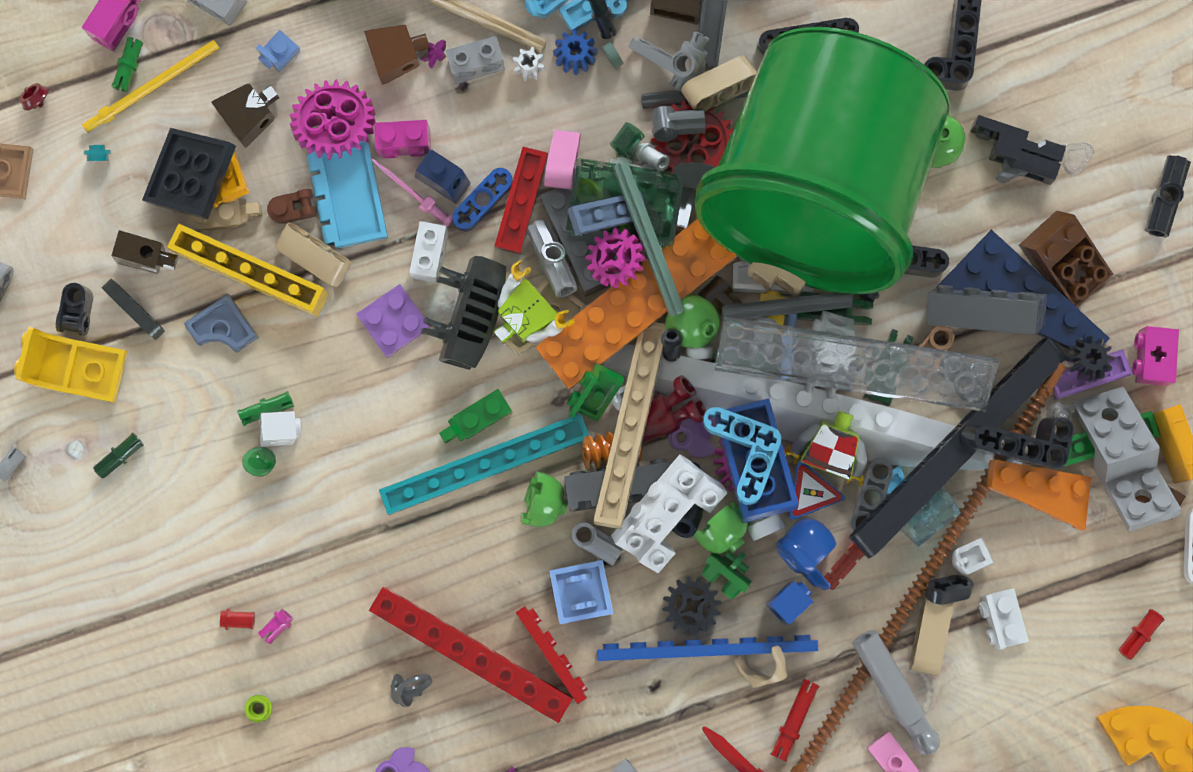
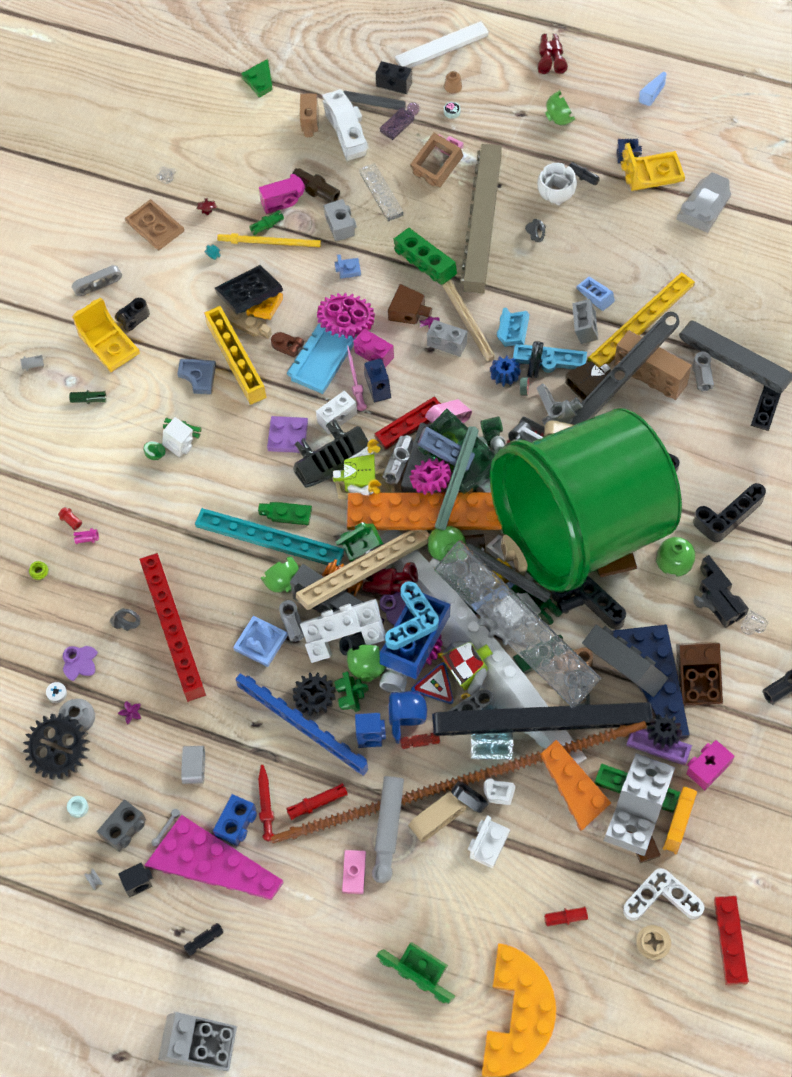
camera: 40 degrees right, 20 degrees down
(131, 250) = (189, 309): dark brown torso -> none
(133, 309) = (161, 334): pearl dark grey beam -> none
(246, 111) = (305, 283): dark brown torso -> none
(312, 254) = (275, 371): tan beam -> none
(464, 209) = (383, 404): blue beam -> none
(533, 59) = (474, 359): white gear -> none
(559, 663) = (214, 667): red plate -> none
(671, 344) = (425, 543): black pin -> none
(757, 679) = (328, 764): tan cap -> none
(1015, 444) = (578, 737): black beam -> none
(1061, 410) = (621, 749): clear plate -> none

